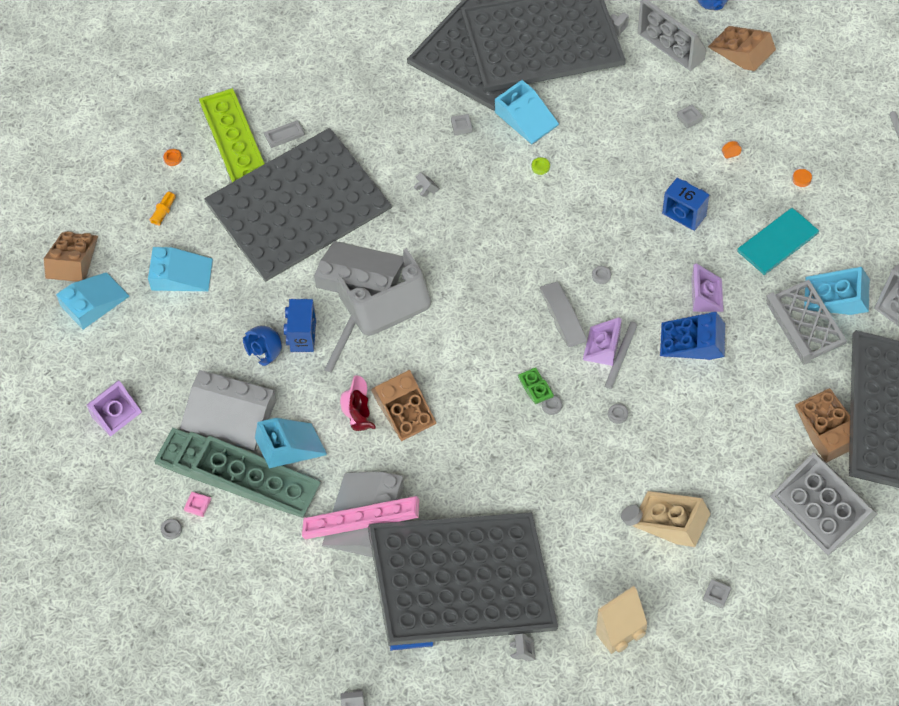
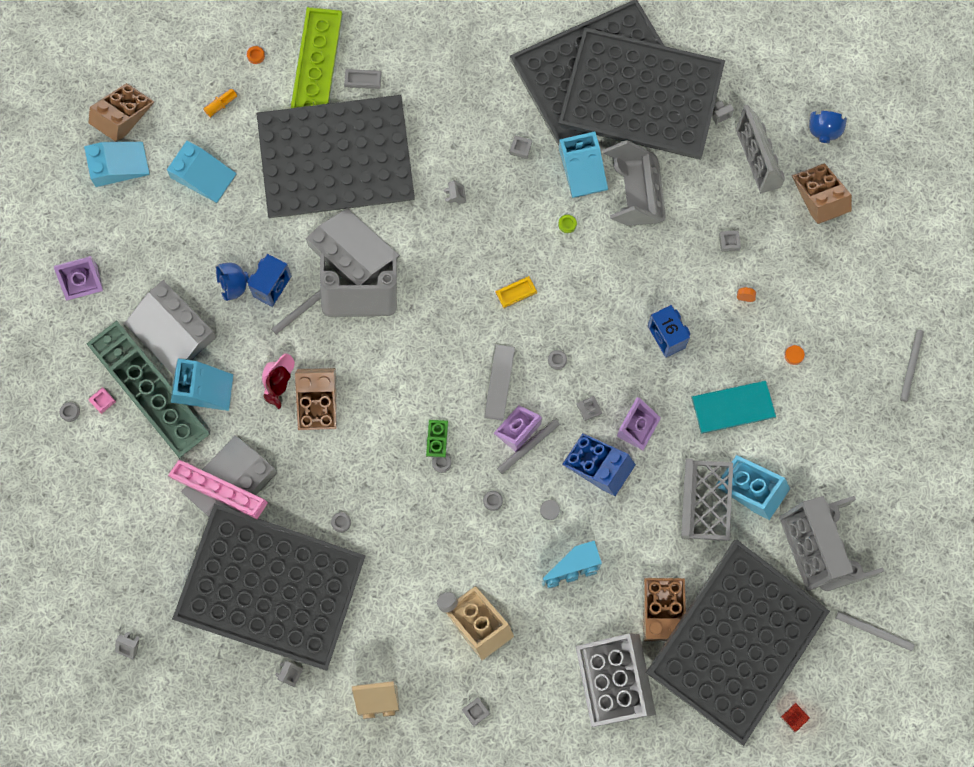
camera: 25 degrees right, 15 degrees up
(490, 498) = (341, 522): none -> light grey tile
(530, 238) = (516, 292): none -> yellow tile
(583, 105) = (642, 184): none -> light grey windscreen
(654, 299) = (589, 408): none -> light grey tile
(673, 396) = (549, 510): none -> light grey tile
(731, 420) = (581, 558): none -> medium azure slope

